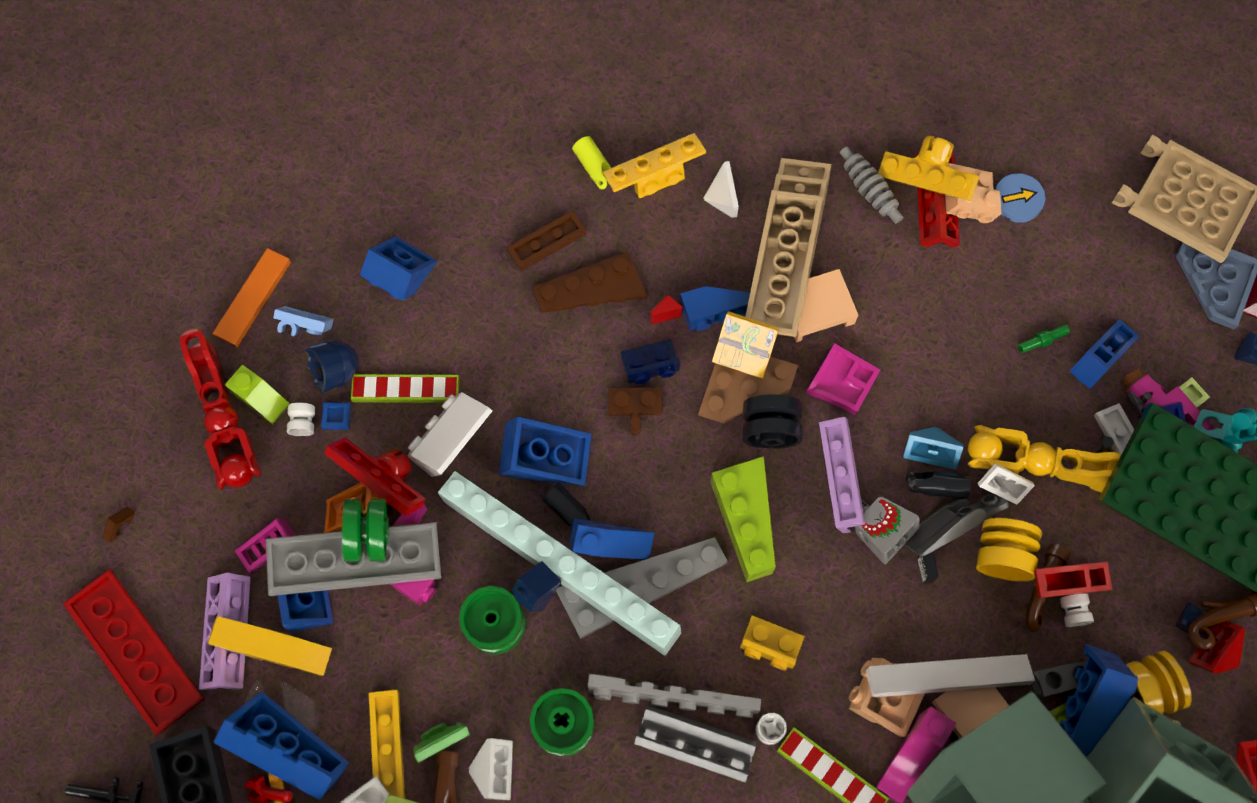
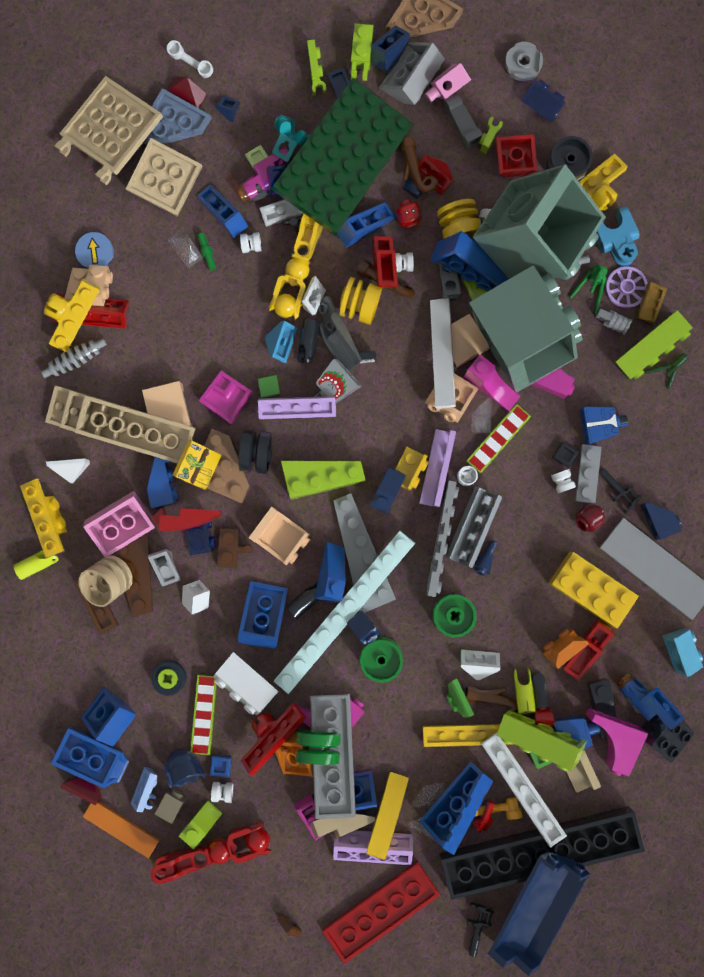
camera: 80 degrees left, 15 degrees up
(256, 581) = (339, 826): none -> tan slope
(282, 354) = (170, 805): none -> dark tan brick
(304, 247) = (83, 789): none -> dark red slope
(342, 249) = (90, 759): none -> blue slope
(456, 347) = (175, 674): none -> black wheel
(564, 363) = (195, 597): none -> white panel
(578, 243) = (105, 581): none -> tan wheel
(602, 318) = (164, 567): none -> light grey slope
(643, 765) = (484, 562): none -> dark blue cone
(655, 257) = (119, 524): none -> bright pink slope
(657, 467) = (280, 536): none -> light nougat panel
(669, 338) = (187, 519): none -> red slope
(736, 611) = (388, 490): none -> dark blue slope
(777, 684) = (437, 468): none -> lavender fence
(860, 747) = (482, 418): none -> clear tile
(866, 437) = (269, 386): none -> bright green tile
(1043, 311) = (185, 248): none -> clear slope
(1067, 394) = (254, 241): none -> white wheel
(1123, 550) = (365, 223): none -> blue slope
(1137, 274) = (164, 177): none -> tan plate
(1150, 612) = (408, 214): none -> red head

